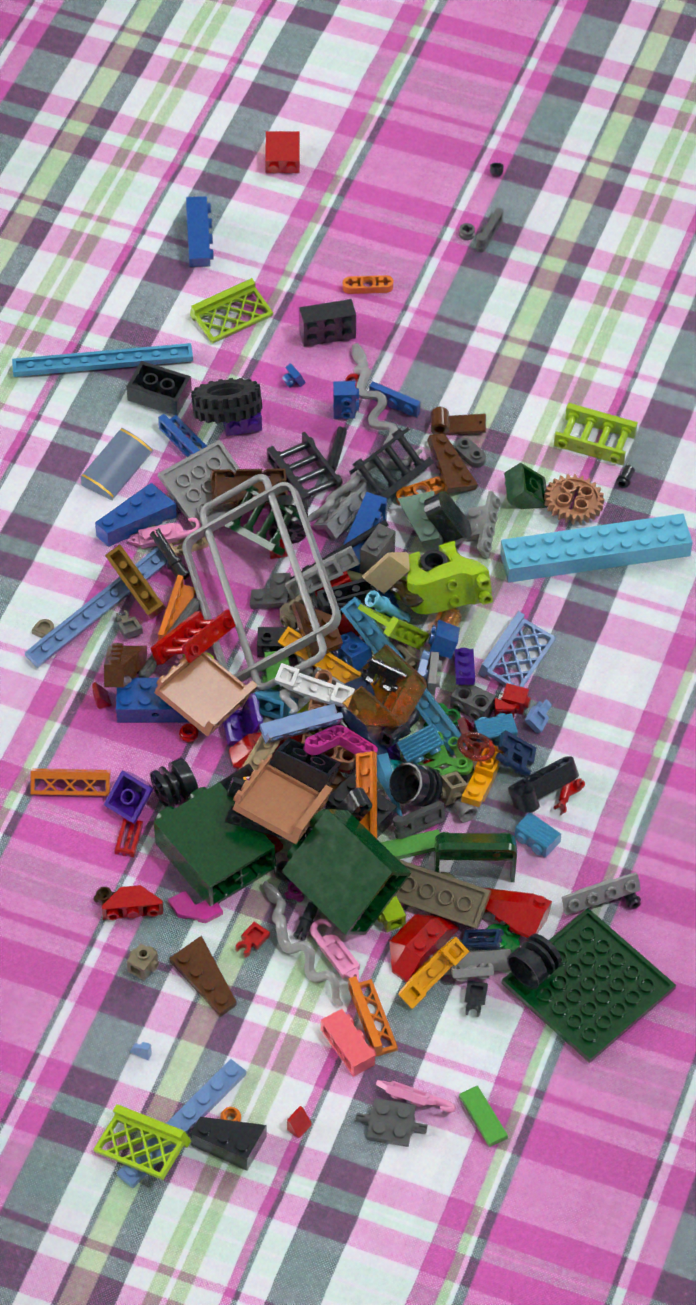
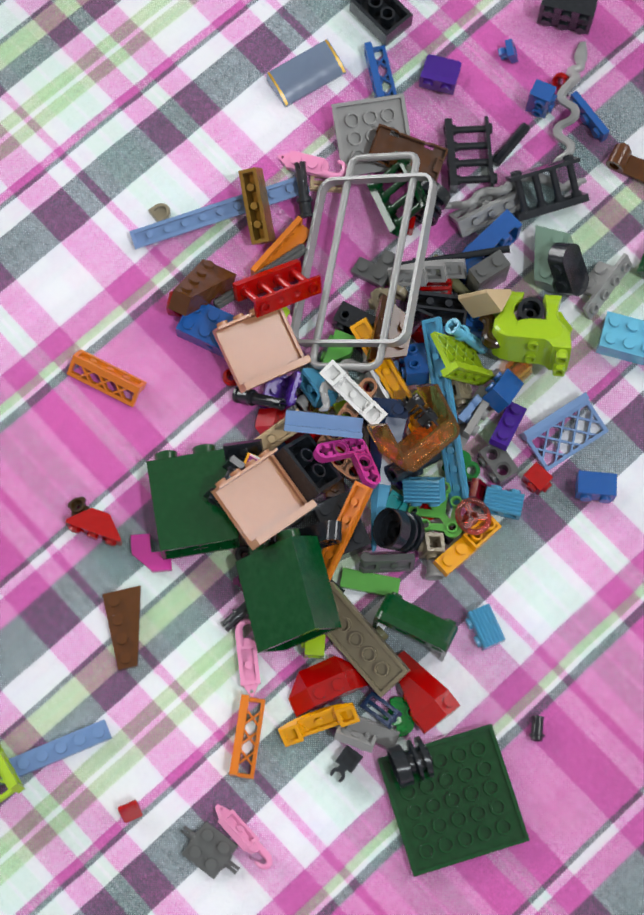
camera: 25 degrees right, 20 degrees up
(126, 850) = (118, 469): red tile -> none
(128, 626) = (233, 244): dark grey plate -> none
(129, 796) = (146, 418): dark purple slope -> none
(138, 512) = (295, 134): blue wedge -> none
(142, 961) = (76, 595): dark tan brick -> none
(142, 1050) = (34, 673): medium blue tile -> none
(173, 783) = (189, 425): black wheel -> none
(219, 737) = (253, 398): none -> black pin
(226, 400) = (415, 60): black tyre -> none
(229, 1140) = (61, 801): black wedge -> none
(231, 1111) = (69, 775): orange plate -> none
(253, 937) = (185, 609): red plate -> none
(280, 920) = (213, 605): light grey animal -> none
(348, 1042) = (212, 753): coral brick -> none
(427, 485) = (570, 217): orange beam -> none
(452, 468) = (604, 214): reddish brown wing -> none
(468, 450) = (630, 200): dark grey plate -> none
(483, 1116) = (293, 883): bright green tile -> none
(503, 707) = (520, 484): red slope -> none
(518, 749) = (511, 532): dark blue plate -> none
(537, 716) = (549, 505): medium blue plate -> none
(542, 782) = (514, 578): black beam -> none
(566, 791) = (535, 594): red arm -> none
(570, 682) = (596, 486): none -> blue brick
(600, 893) = (509, 714): light grey bracket -> none

